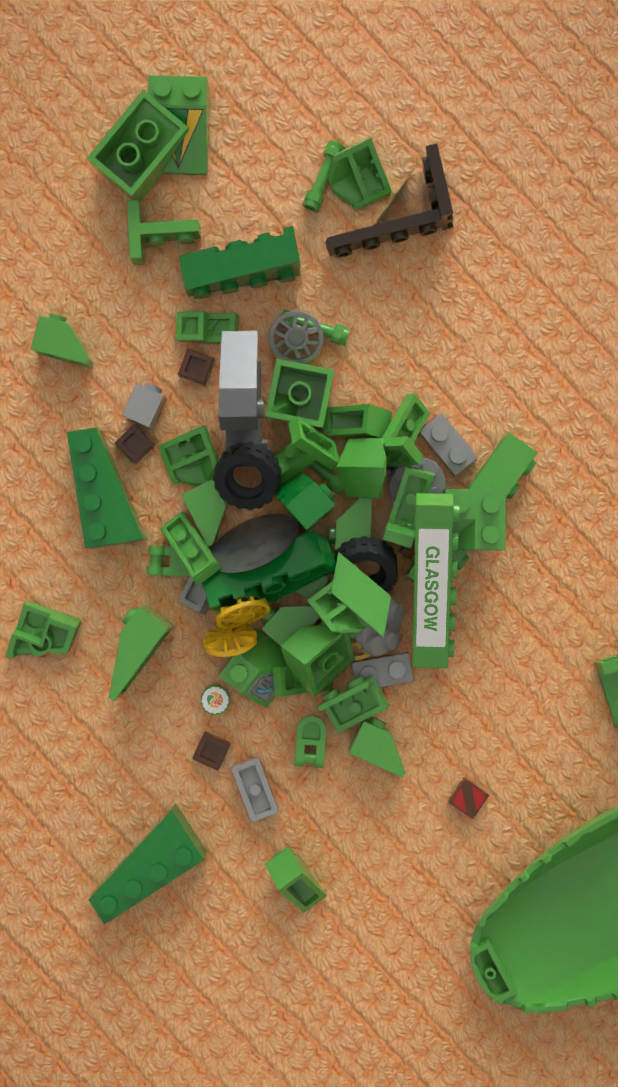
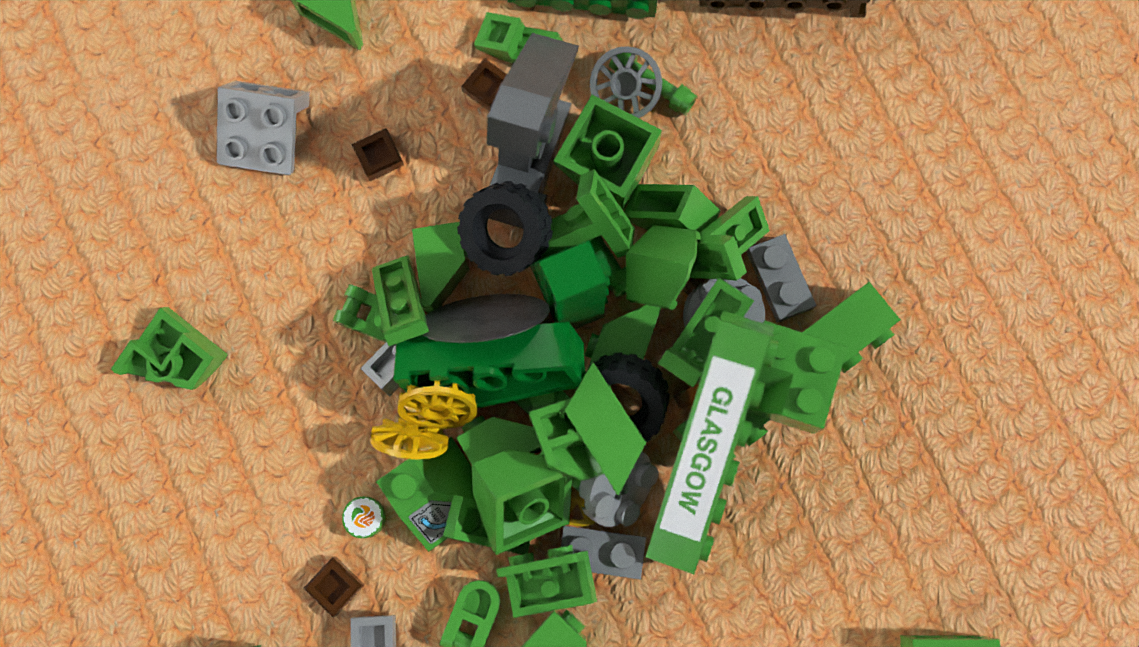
camera: 15 degrees right, 10 degrees down
(41, 449) = (258, 126): none -> light grey bracket
(101, 494) = (310, 201): green wedge -> none
(137, 643) = (279, 409): bright green slope -> none
(145, 405) = (406, 109): light grey brick -> none
(190, 457) = (440, 187): bright green slope -> none

